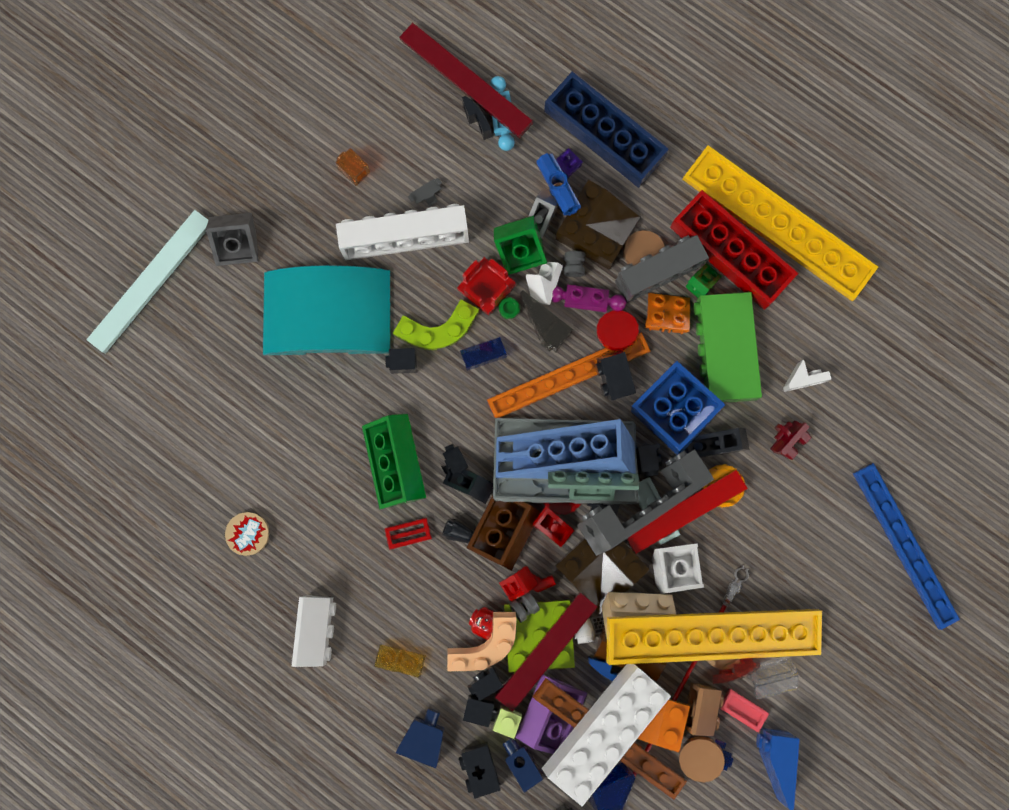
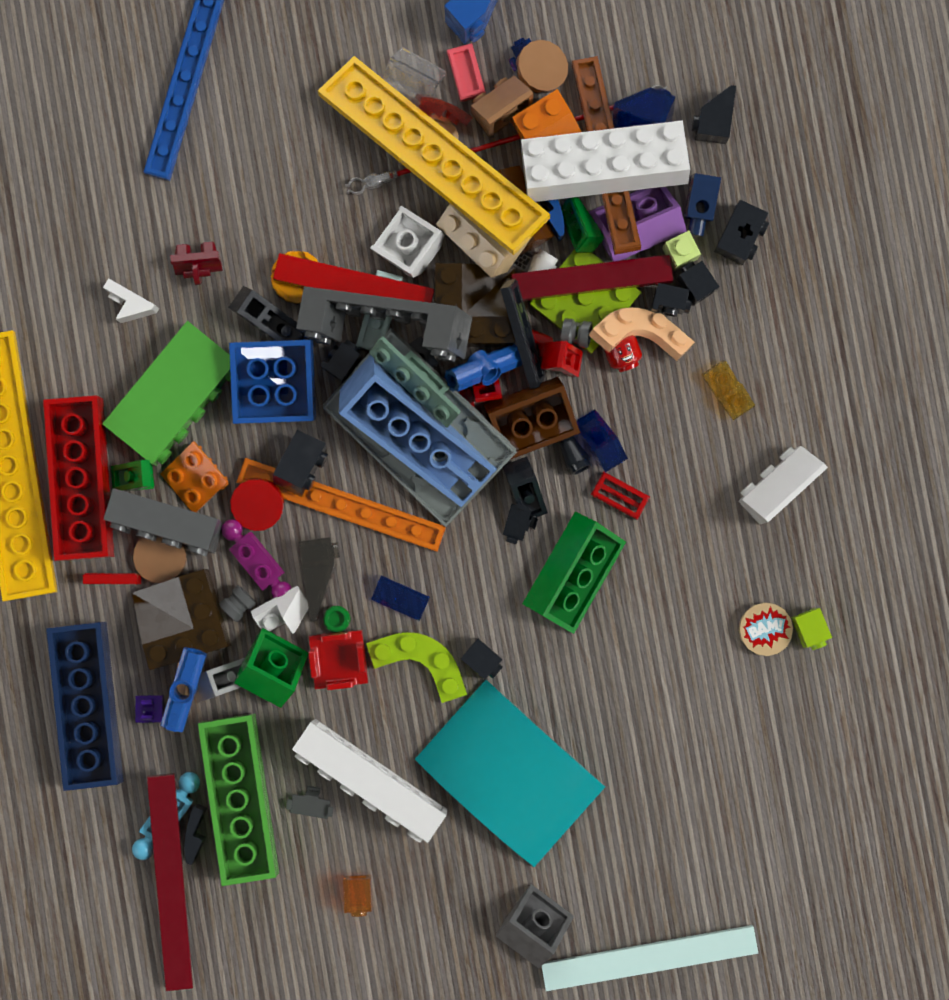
camera: 135 degrees left, 5 degrees up
(218, 559) = (811, 628): none -> lime brick
(423, 739) = (768, 303): dark blue torso -> none
(449, 555) = (601, 441): none -> clear blue slope
(469, 156) = (238, 799): none -> bright green brick
(557, 576) = (522, 333): none -> black tile
(560, 531) = (483, 368): none -> blue piece
(583, 678) = (584, 233): none -> green slope
(659, 212) = (112, 578): none -> red tile

